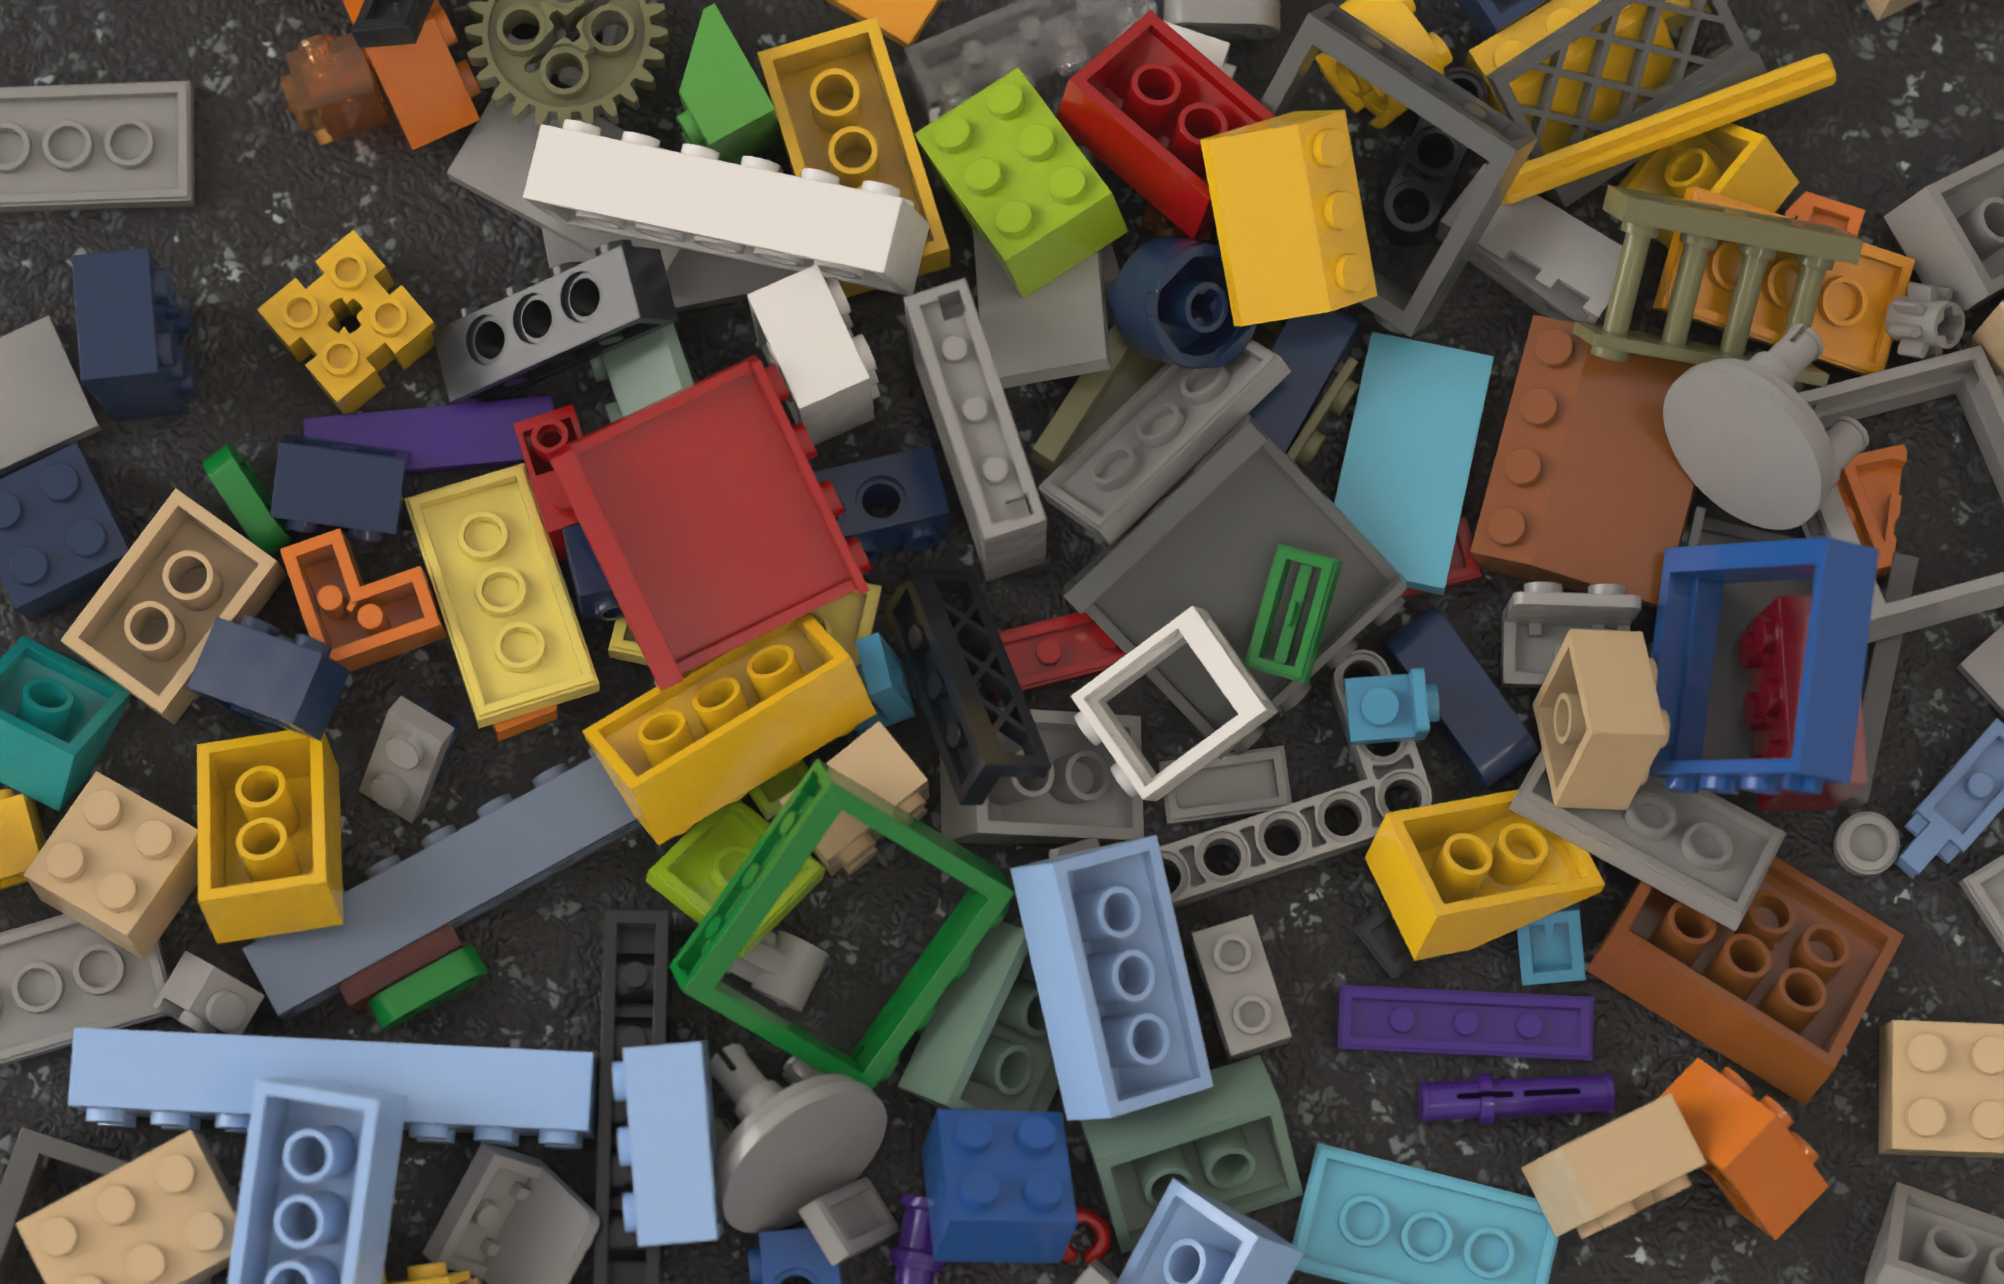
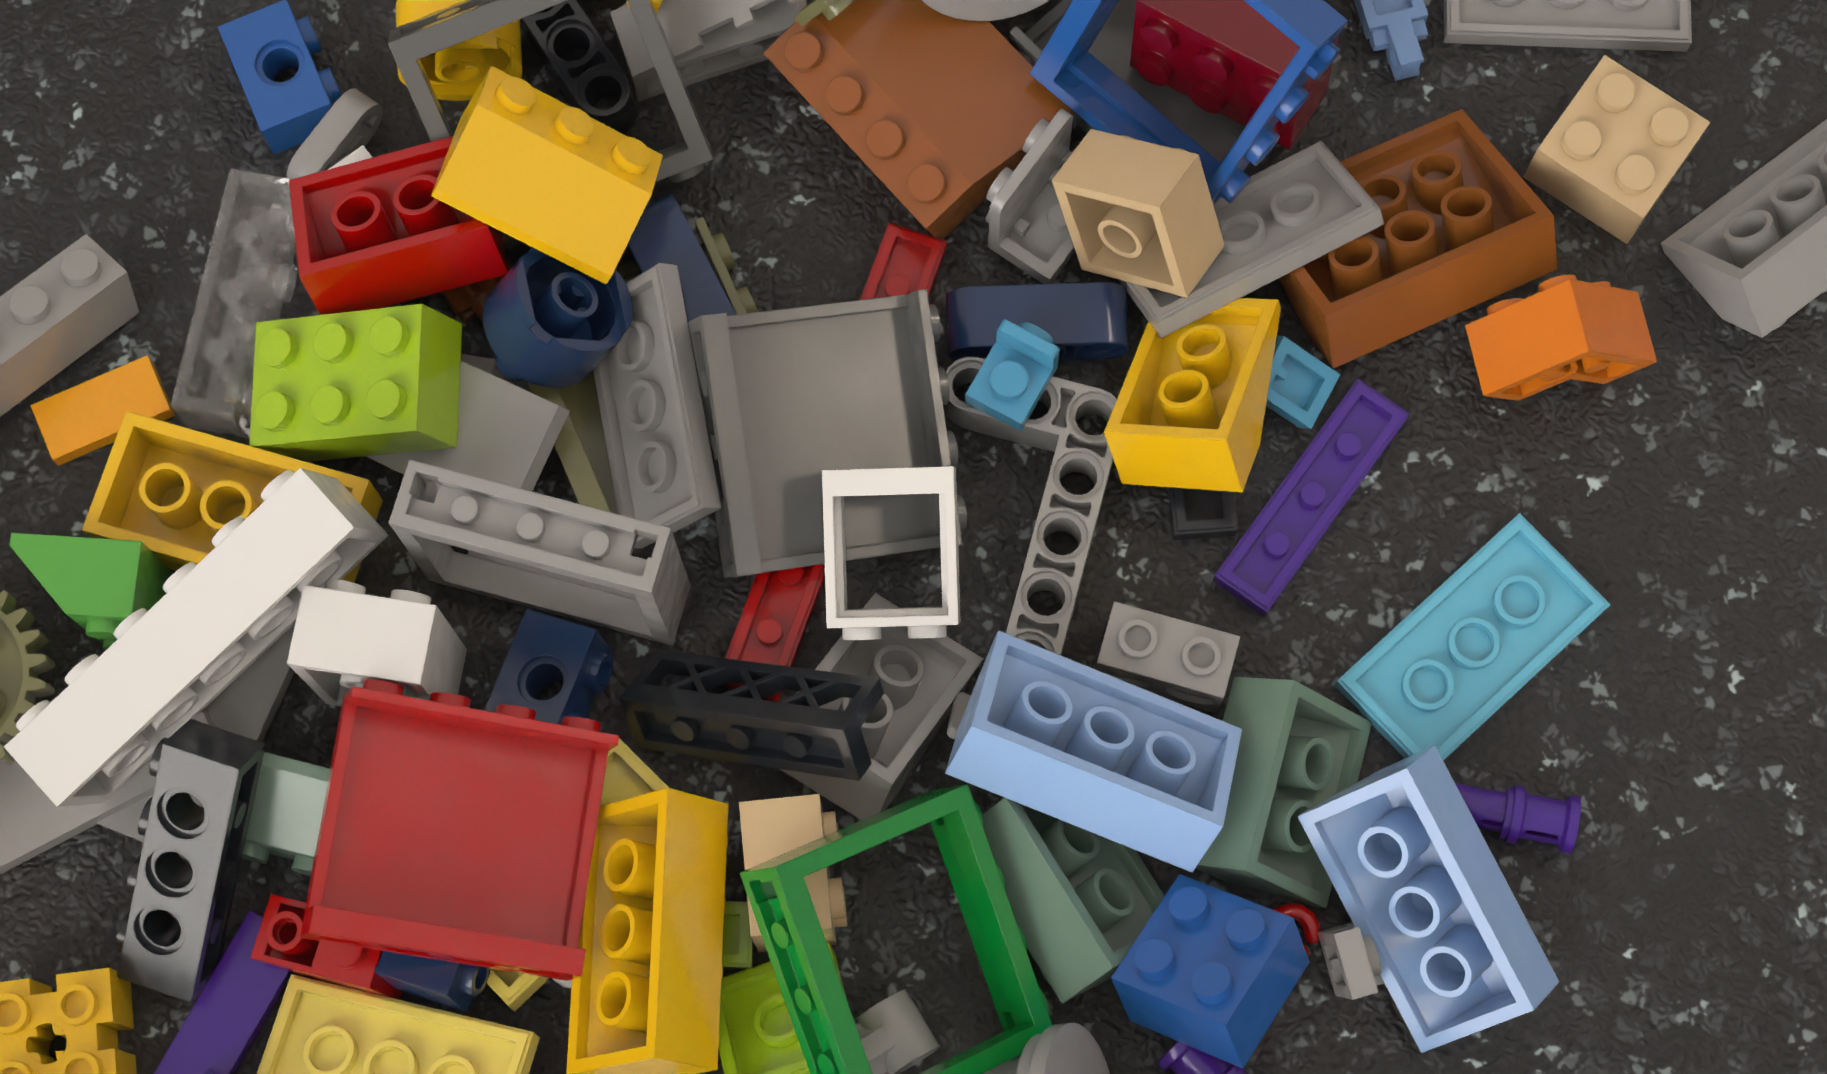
camera: 55 degrees left, 5 degrees down
(884, 682) = (703, 782): dark azure bracket -> none
(1230, 788) = (987, 557): light grey tile -> none
(1316, 621) = (919, 439): green tile -> none
(1413, 452) = (806, 224): medium azure tile -> none
(1515, 1097) = (1369, 554): dark purple pin -> none
(1615, 1169) = (1522, 445): tan brick -> none
(1866, 844) = (1368, 90): light grey tile -> none

